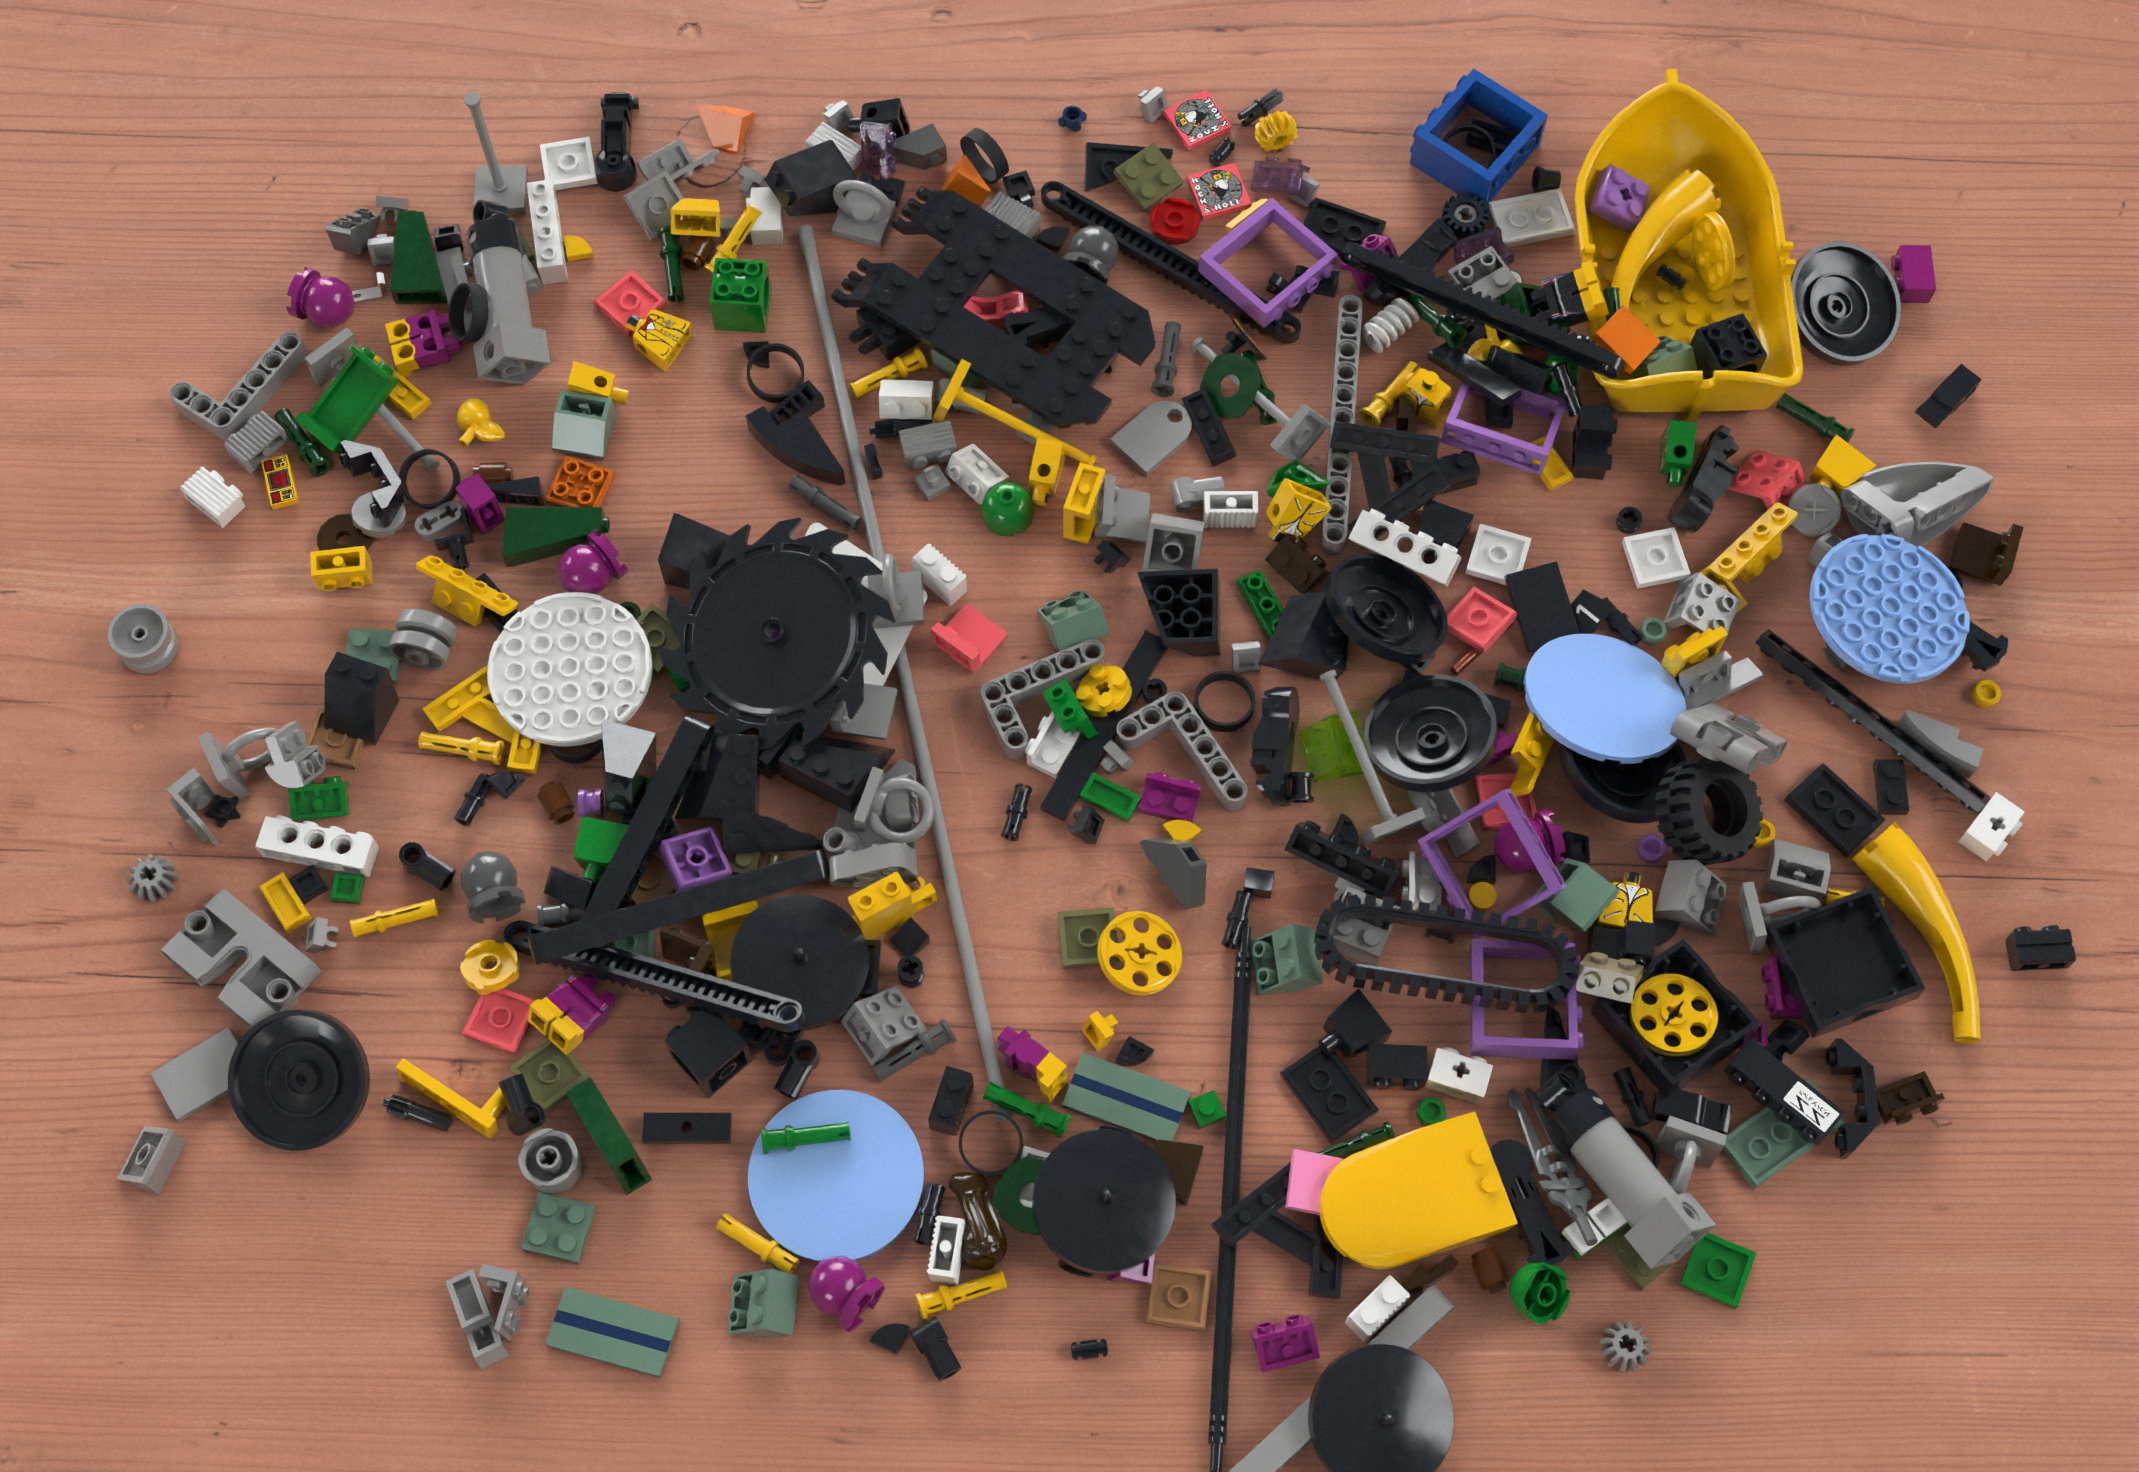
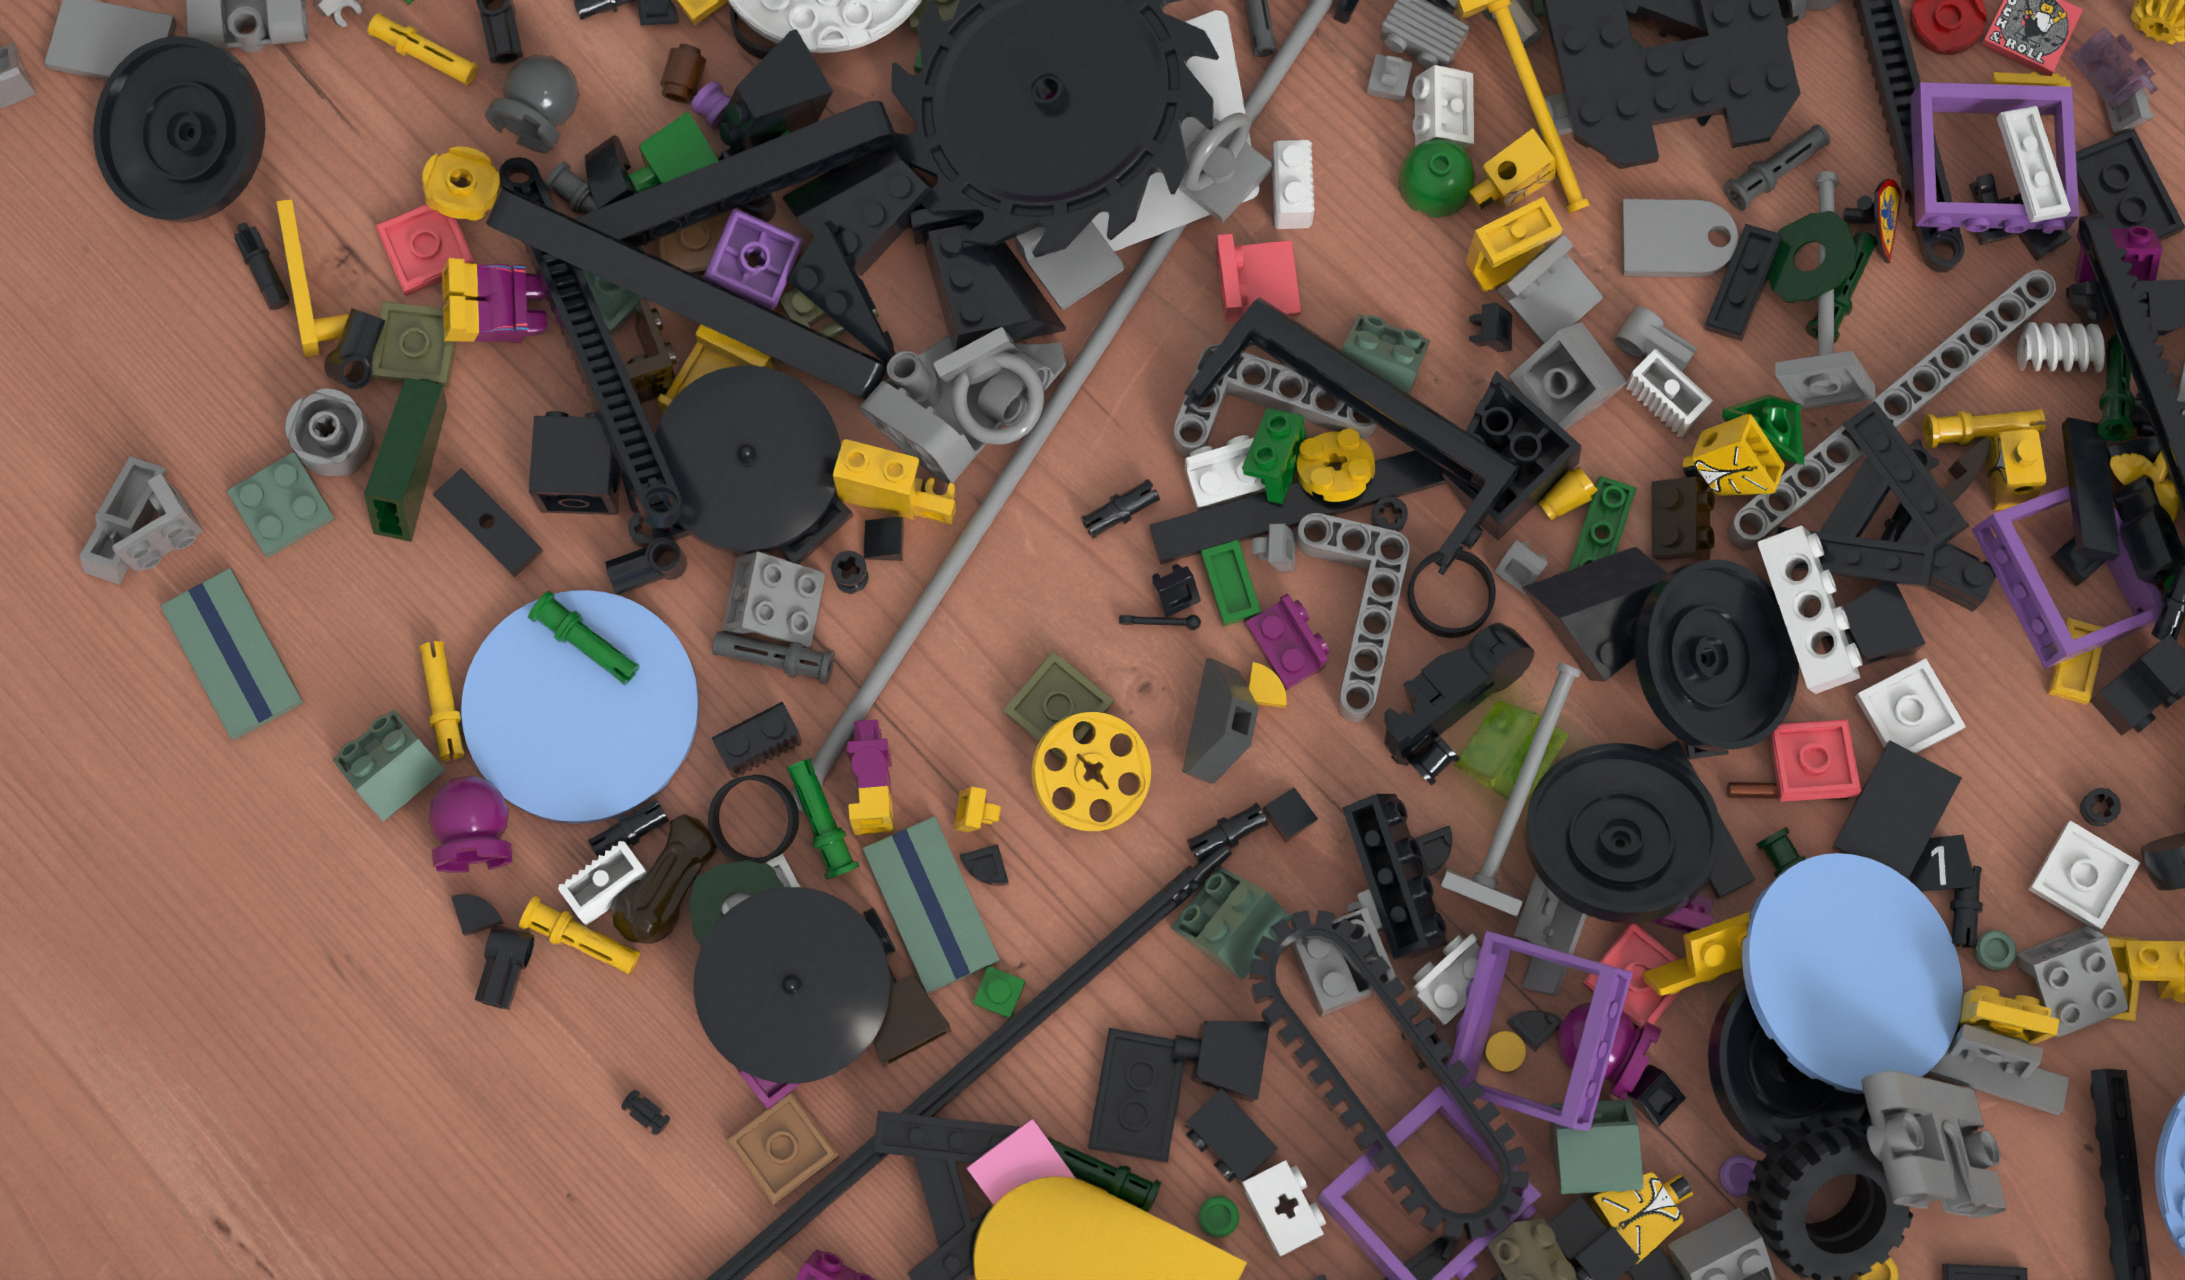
camera: 45 degrees right, 10 degrees up
(1095, 637) = (1374, 399): none -> black piece
(1110, 834) = (1192, 622): none -> black hinge
(1231, 601) = (1568, 494): none -> yellow cone
(1292, 247) = (2033, 164): none -> white tile

